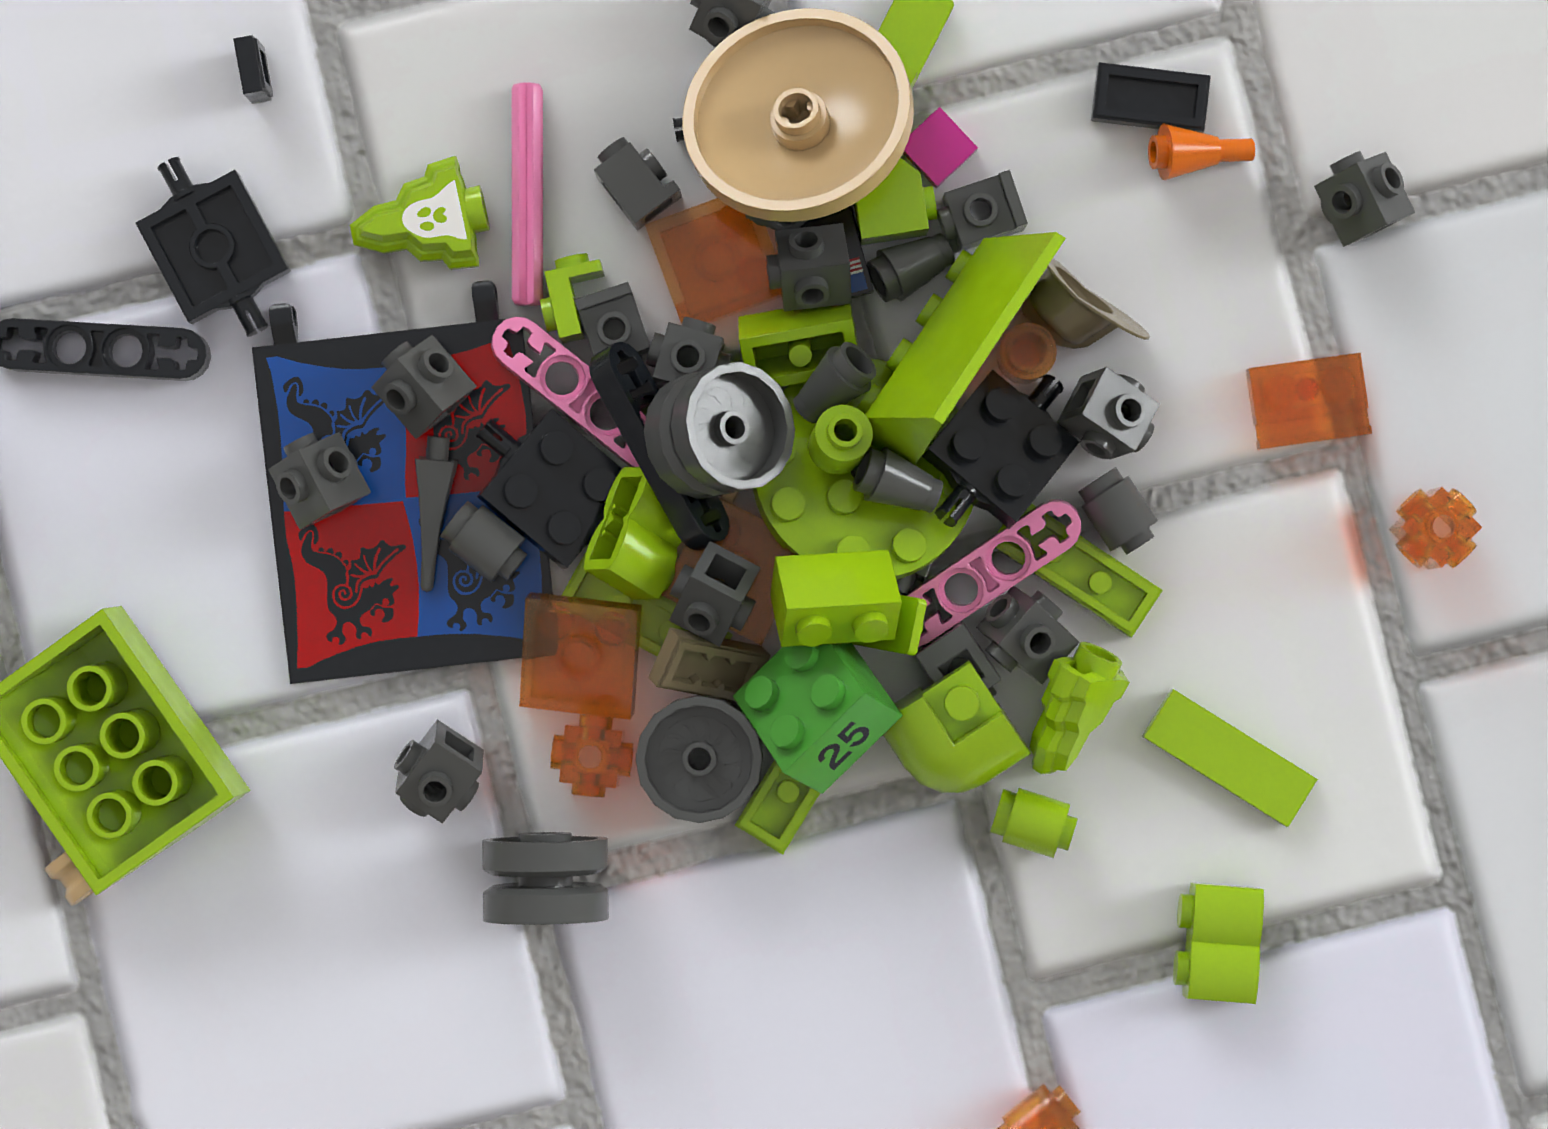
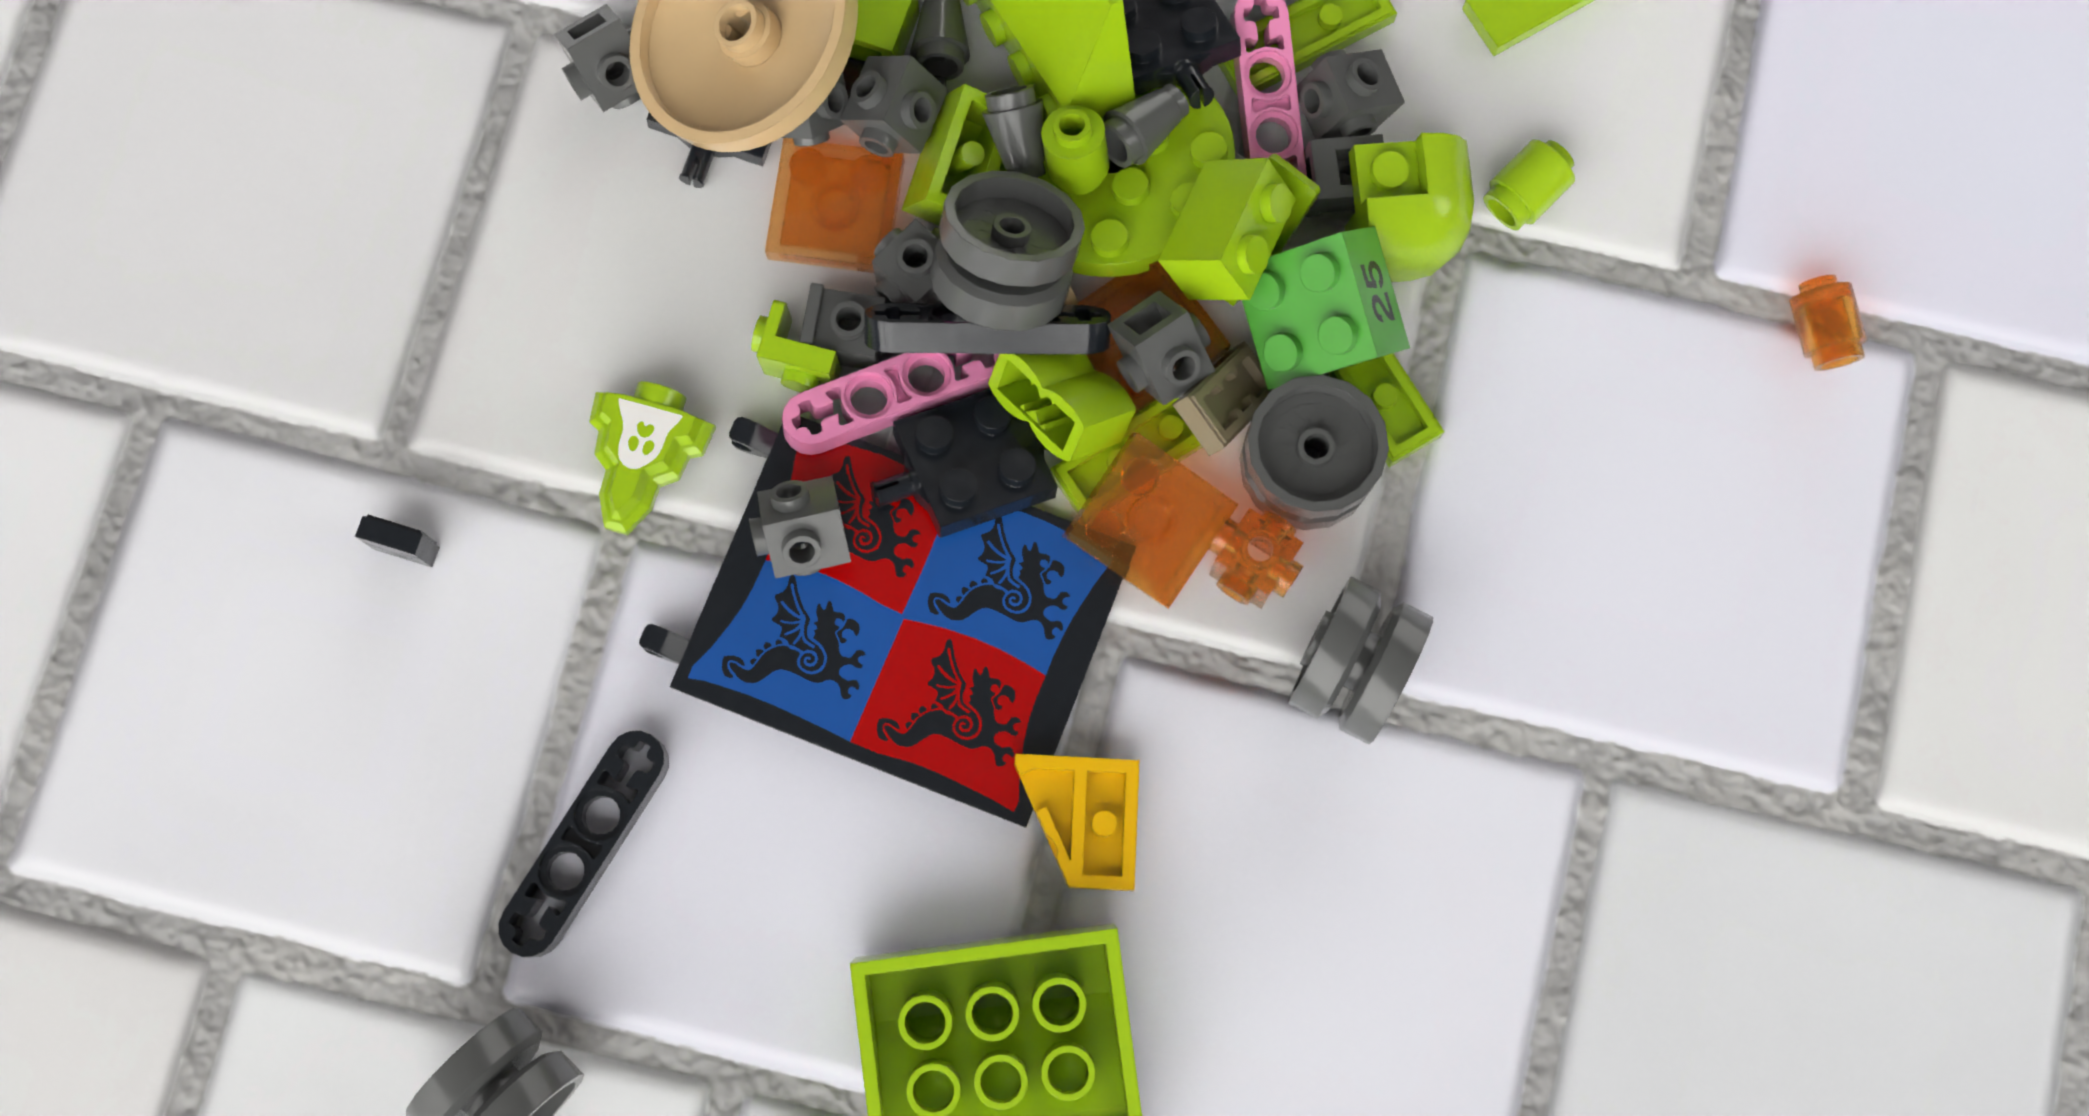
camera: 65 degrees left, 10 degrees down
(213, 246) = (547, 672): black plate -> none
(318, 478) = (837, 678): dark grey brick -> none
(320, 727) = (1086, 816): none -> yellow wing
(434, 482) = (905, 573): dark grey piece -> none
(438, 772) = (1196, 717): dark grey brick -> none
(484, 542) = (989, 552): dark grey brick -> none
(527, 194) = (673, 347): bright pink axle -> none
(635, 182) = (719, 238): dark grey brick -> none
(1074, 705) = (1438, 88): lime rock -> none
(1221, 942) = (1731, 73): lime brick -> none

